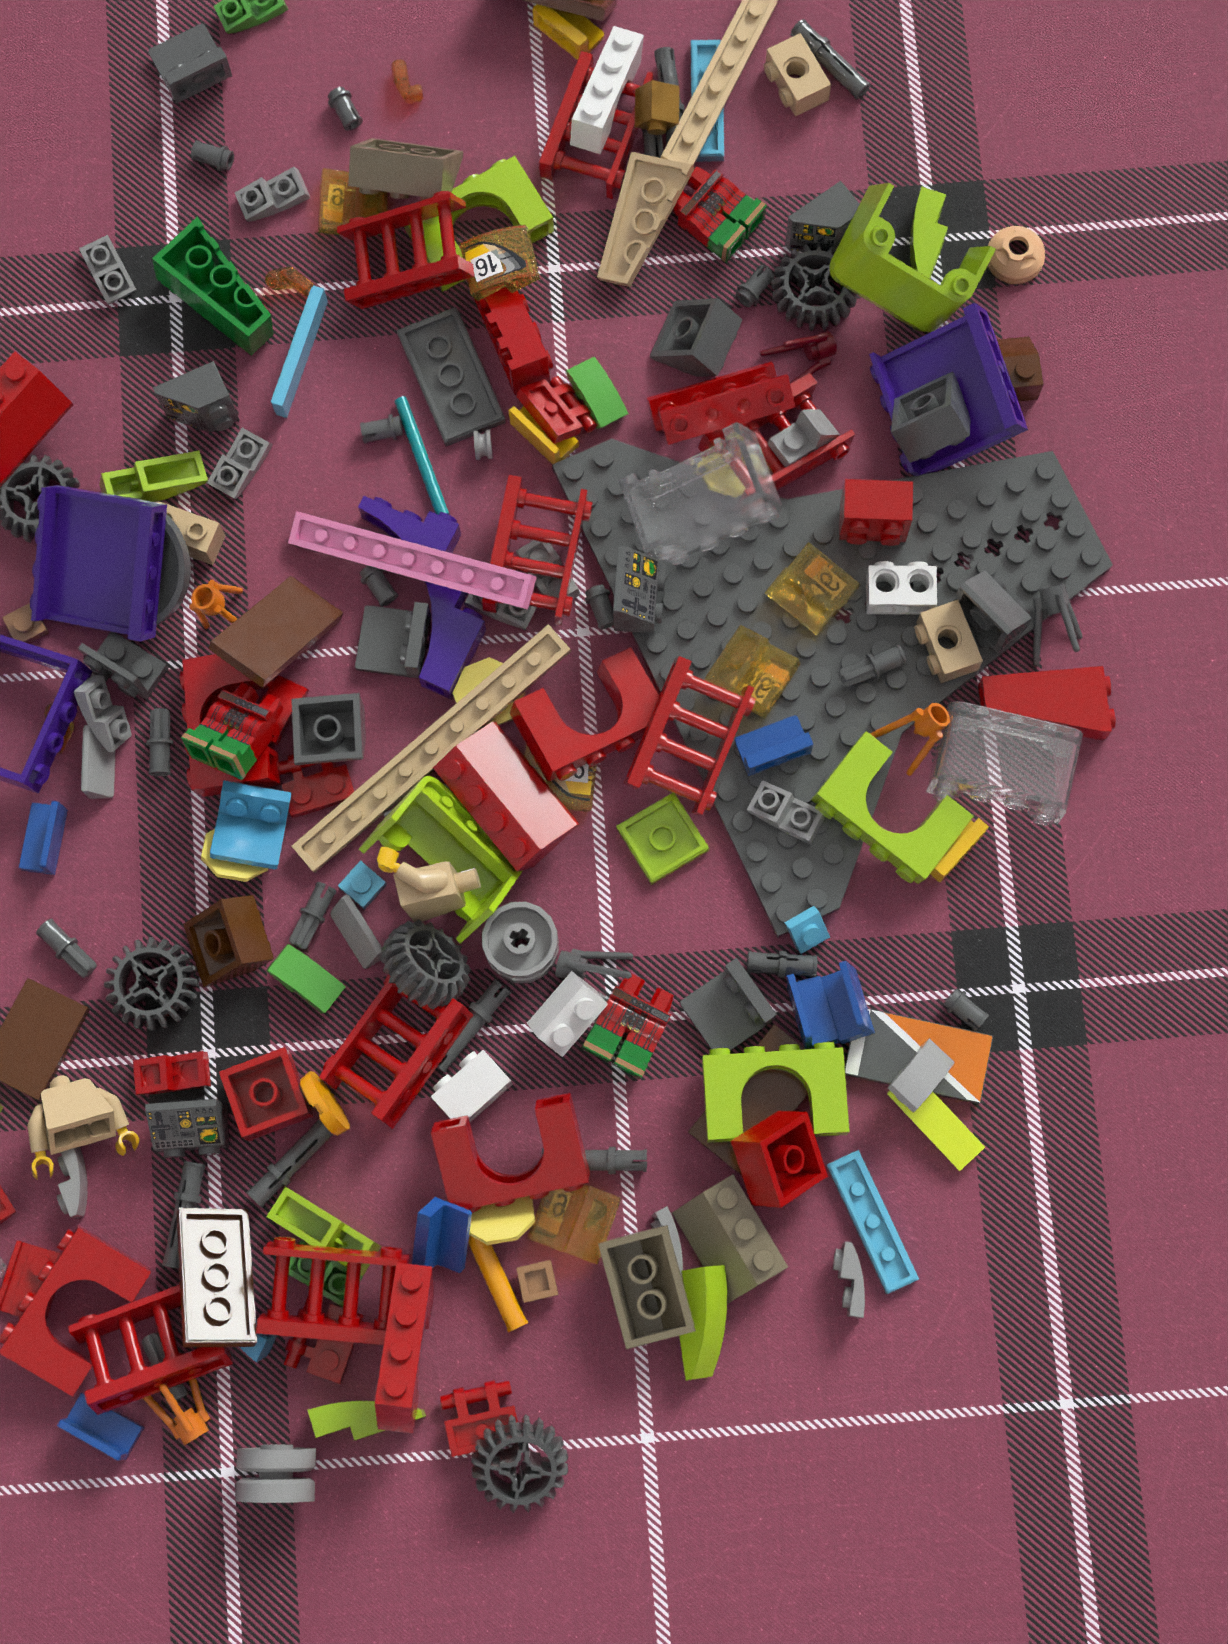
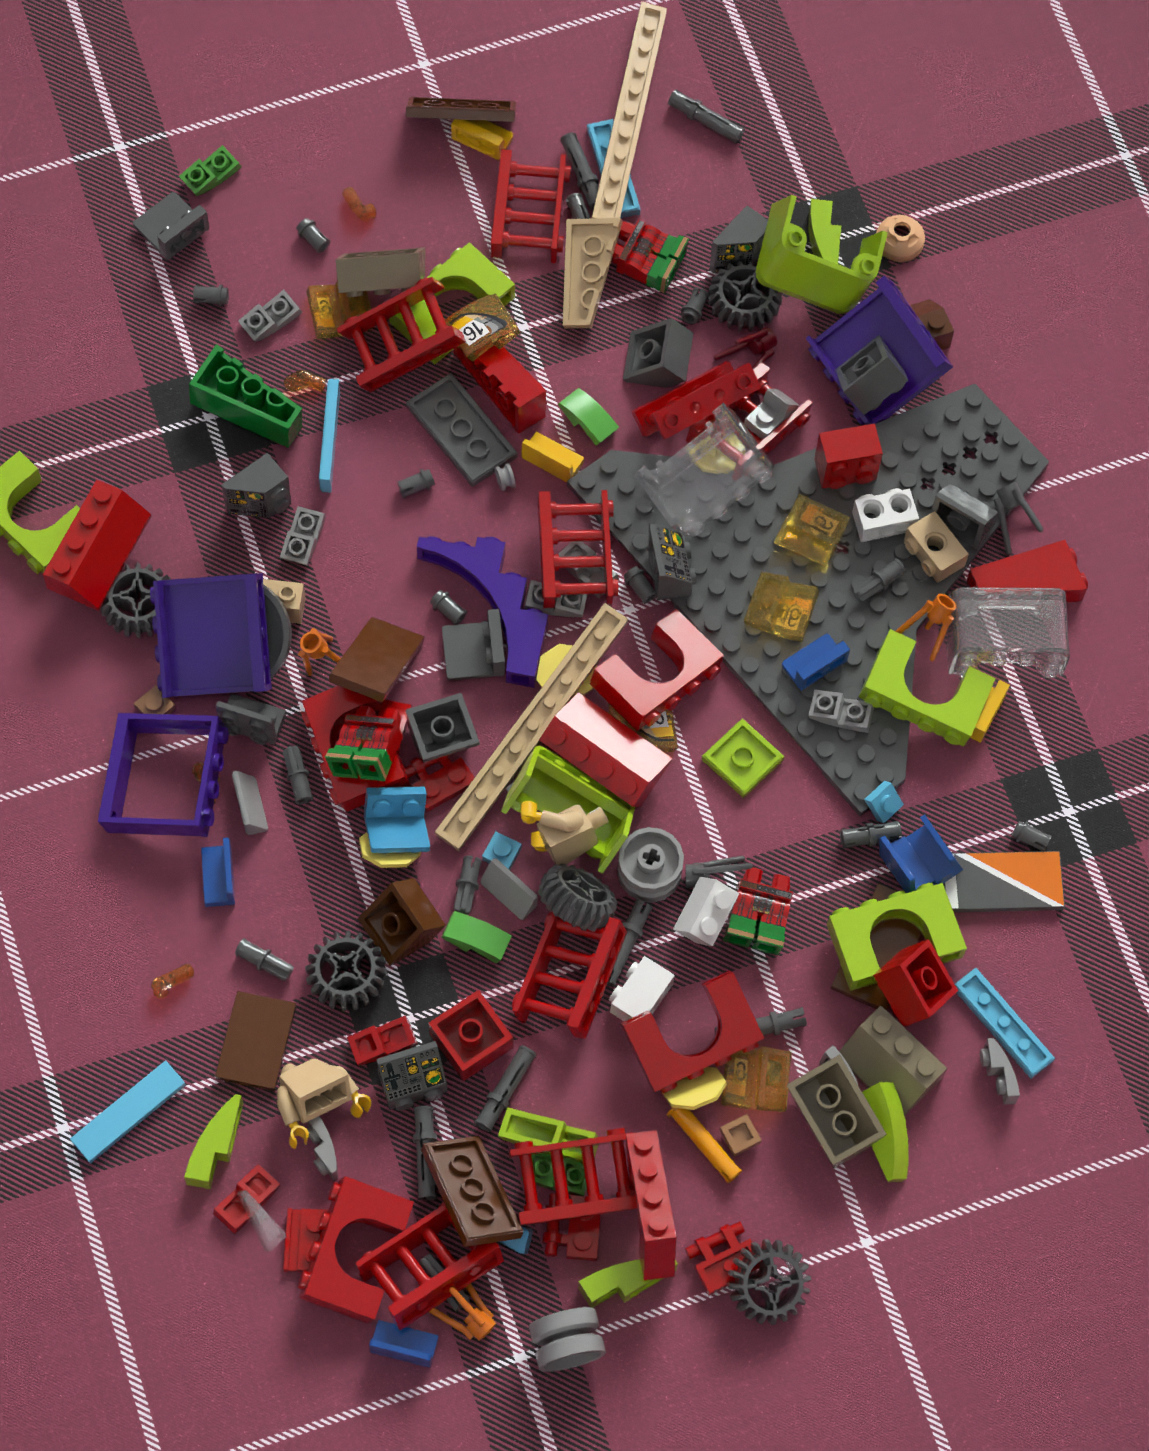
camera: 20 degrees left, 10 degrees down
(104, 719) = (248, 764): light grey slope -> none
(107, 269) = (146, 405): light grey slope -> none
(156, 477) = (238, 559): lime slope -> none
(325, 1102) = (523, 1030): light orange tile -> none
(412, 560) = (475, 577): bright pink plate -> none
(421, 455) = (453, 496): teal bar -> none
(442, 1235) = (654, 1110): blue panel -> none
(556, 409) = (559, 435): red plate -> none
(599, 101) = (531, 175): white arch -> none
(656, 107) = (577, 180): pearl gold brick -> none
(656, 741) = (719, 675): red fence -> none
(728, 1008) = (838, 876): dark grey bracket -> none
(795, 57) = (679, 120): tan brick -> none
(921, 1075) = (1011, 892): light grey slope -> none
(944, 1130) = (1032, 928): neon yellow tile -> none

